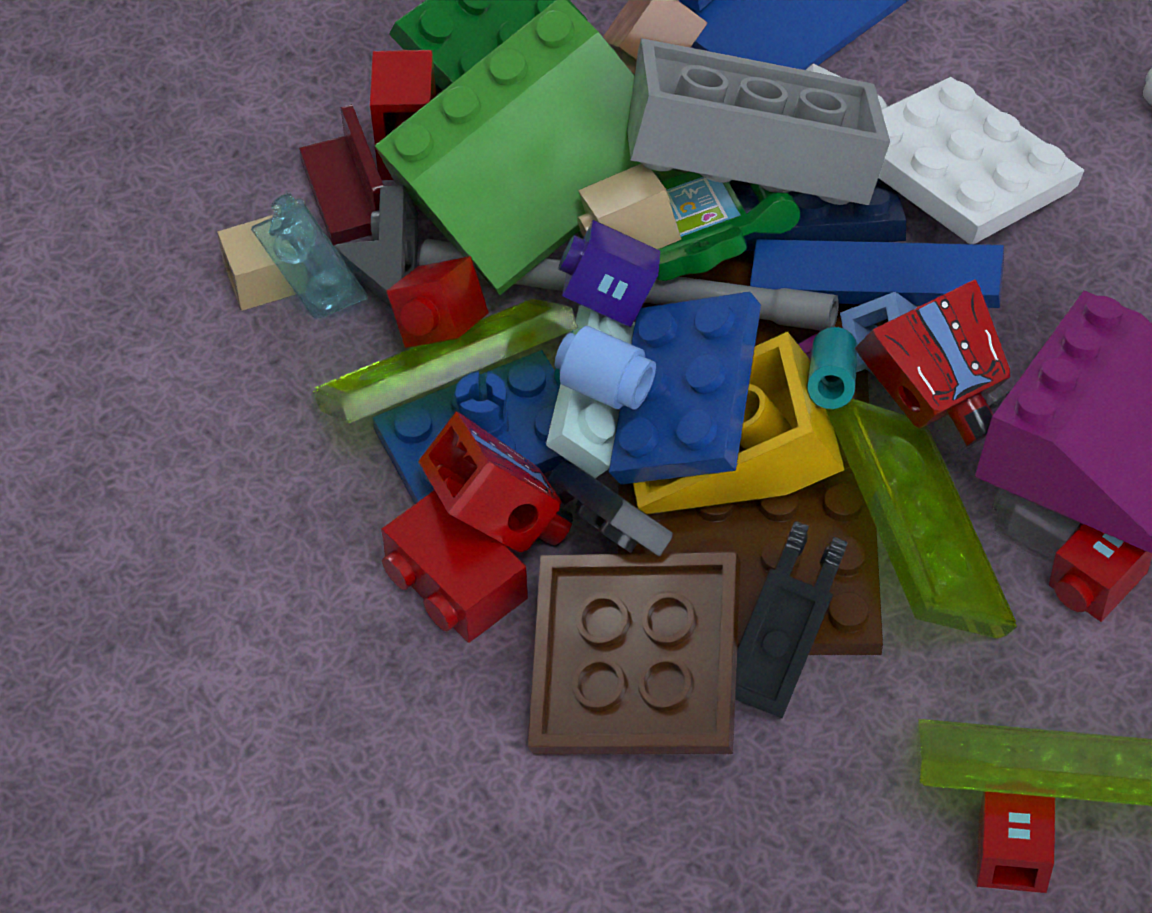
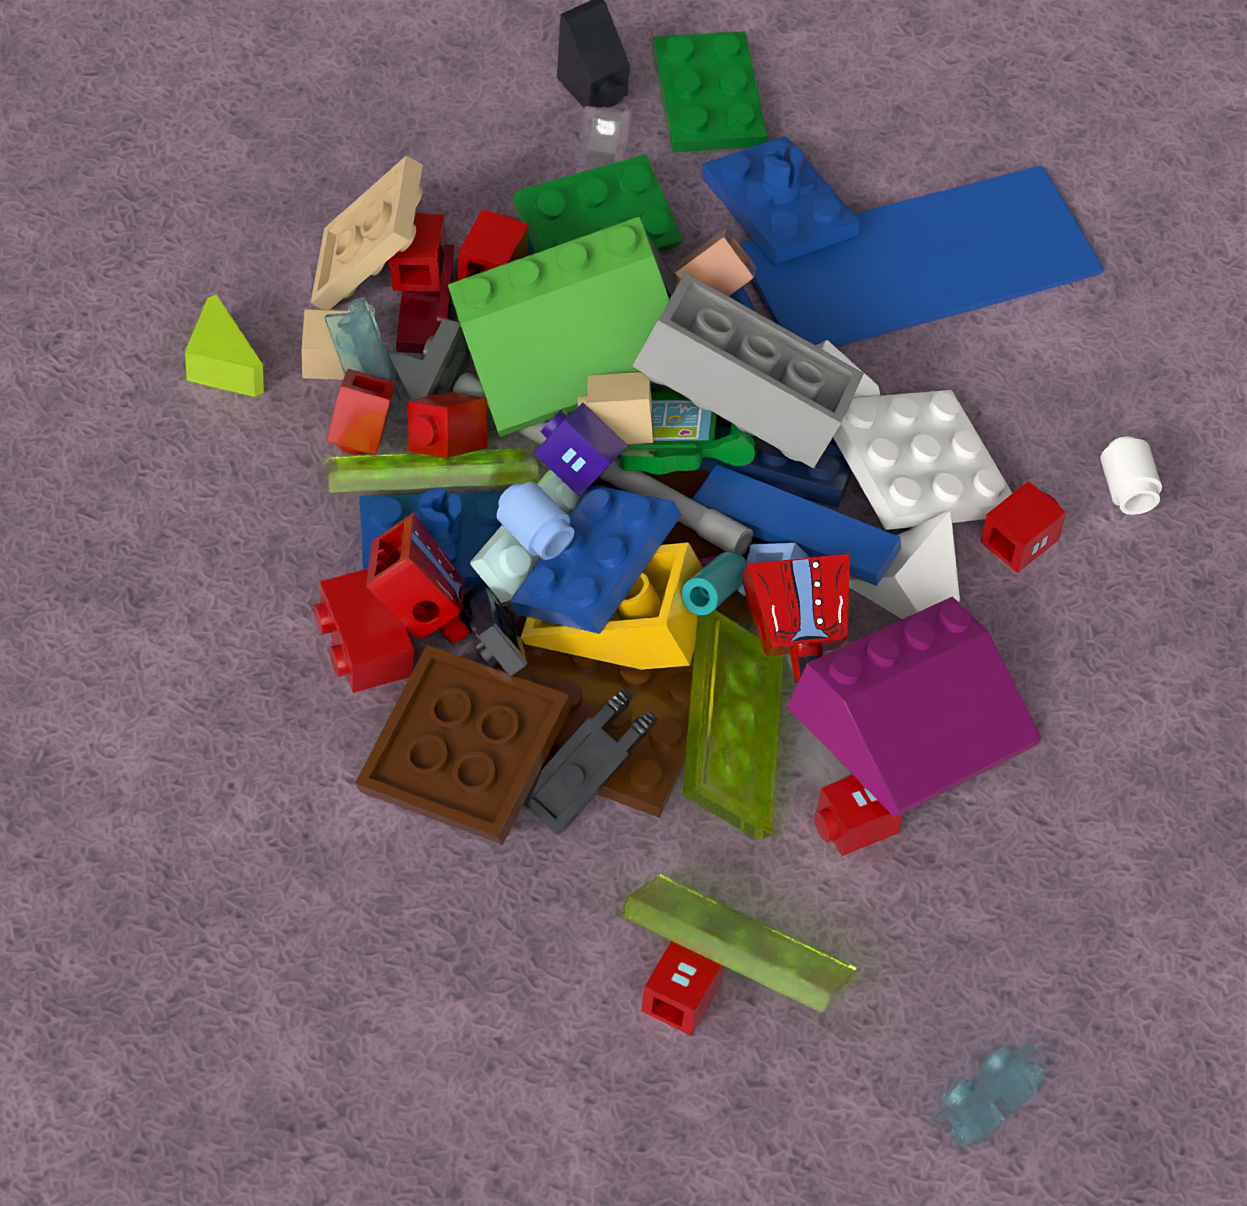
camera: 15 degrees right, 0 degrees up
(145, 315) = (221, 354): none -> lime slope
(252, 124) = (368, 234): none -> tan plate
(313, 126) = (421, 263): none -> red brick
(334, 323) = (361, 413): none -> brick
(1034, 280) = (921, 571): none -> white slope
(1105, 192) = (1023, 526): none -> red brick

